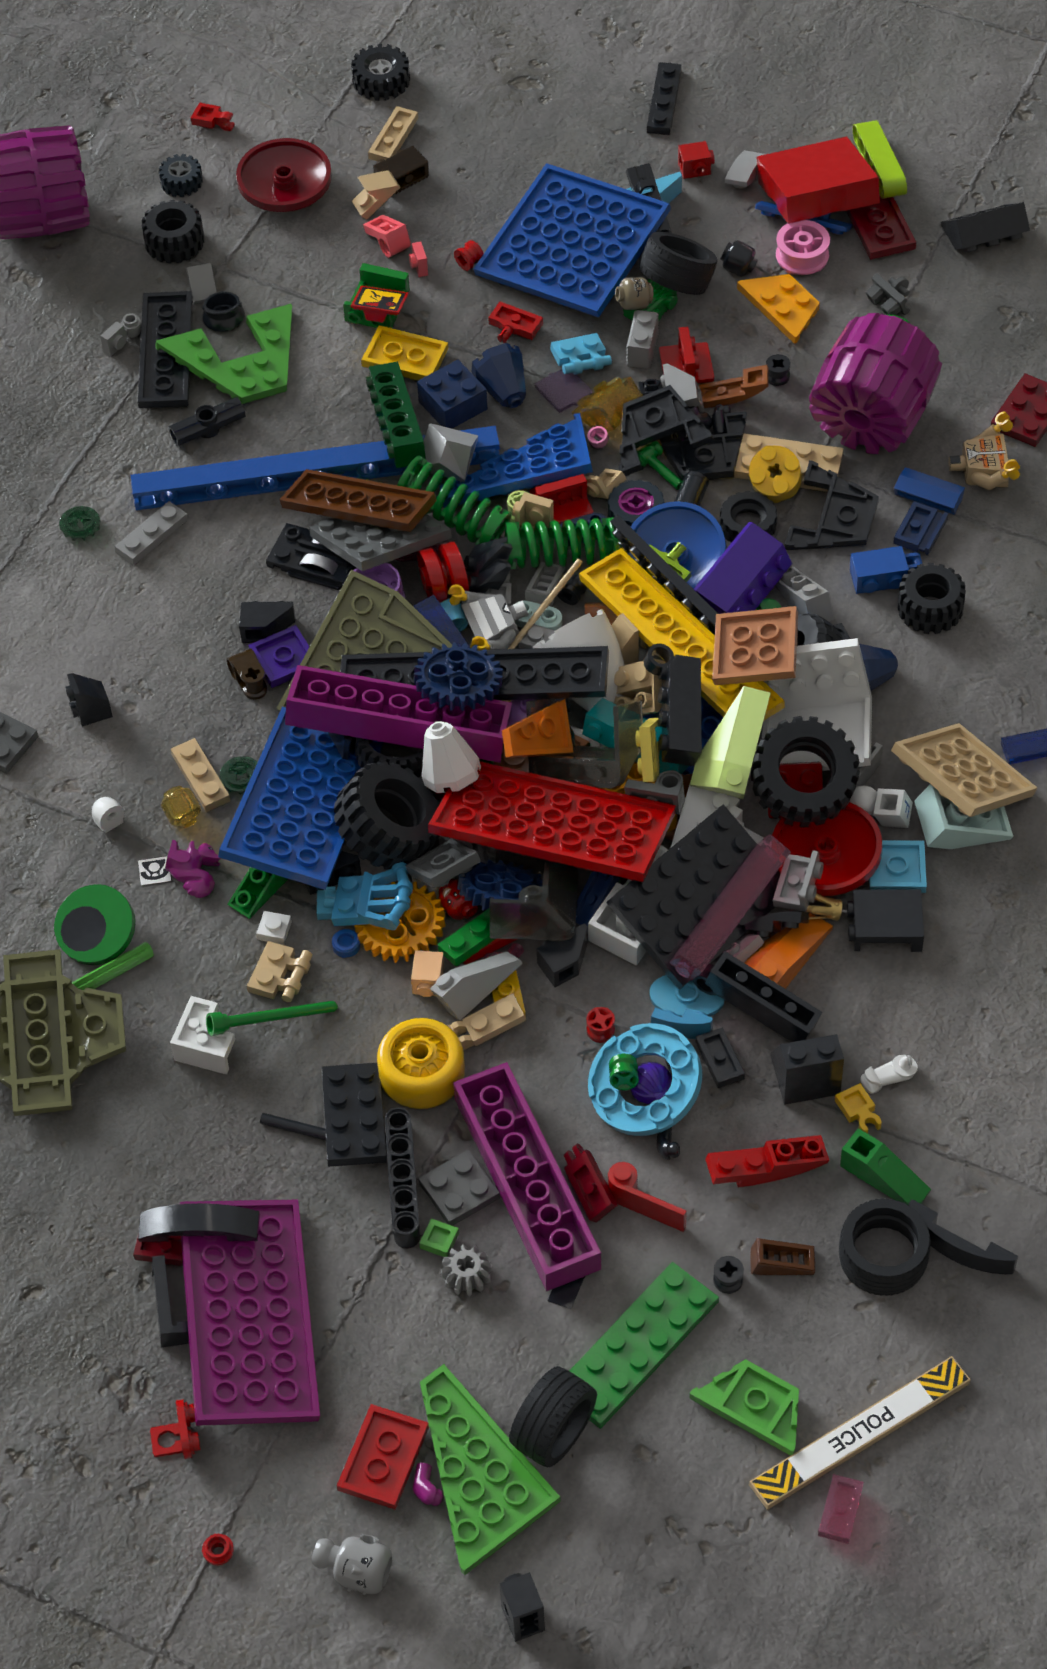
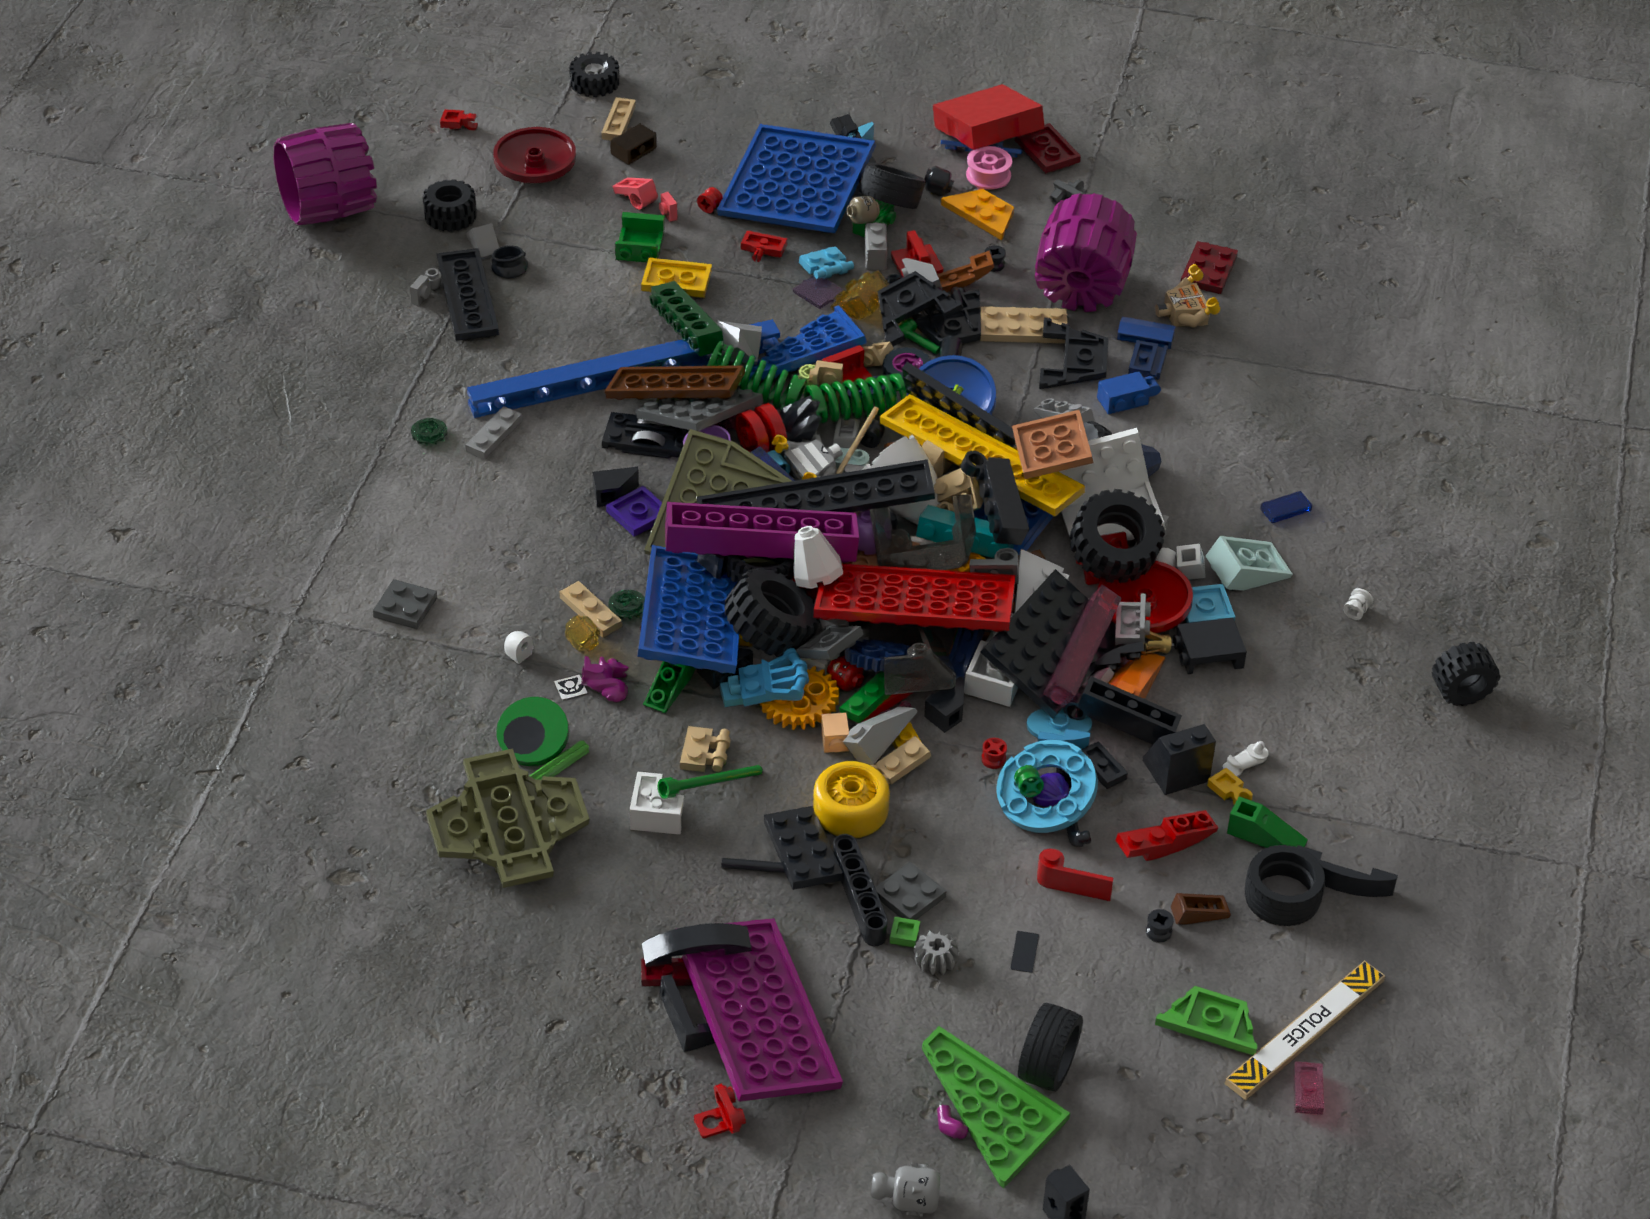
camera: 15 degrees left, 10 degrees down
(88, 698) = (477, 561): black slope -> none
(180, 175) = (443, 164): black wheel -> none
(207, 421) = (520, 343): black piece -> none
(213, 1542) = (782, 1193): red plate -> none
(244, 377) = (544, 307): bright green wing -> none
(248, 674) = (611, 527): dark brown piece -> none
(274, 927) = (689, 716): white plate -> none
(345, 943) = (755, 721): blue tile -> none
(376, 191) = (620, 158): tan slope -> none
(378, 302) = (646, 239): piece -> none
(382, 1456) = (906, 1106): red plate -> none
(452, 395) = (728, 300): dark blue brick -> none
(458, 676) = (807, 495): dark blue gear -> none
(502, 374) = (766, 282): dark blue cone -> none
(527, 1176) = (969, 873): magenta brick -> none
(540, 733) = (886, 534): orange wing -> none
(589, 1183) = (1021, 873): dark red hinge -> none
(601, 434) = (862, 320): bright pink hinge -> none
(643, 1339) = (1105, 982): green plate -> none
(646, 739) = (984, 544): light yellow wing -> none
(664, 98) = (839, 74): black plate -> none
(695, 159) = (880, 113): red brick -> none
(732, 747) = (1052, 525): yellowish green wedge -> none
(743, 170) = (922, 118): light grey slope -> none
(744, 572) = (1018, 397): dark purple slope -> none
(747, 502) = (1006, 356): black tyre -> none
(775, 459) = (1021, 319): yellow brick -> none
(879, 155) = (1026, 86): lime beam -> none
(931, 582) = (1173, 407): black tyre -> none
(964, 769) = (1241, 525): tan plate -> none
(987, 226) = (1134, 139): black slope -> none

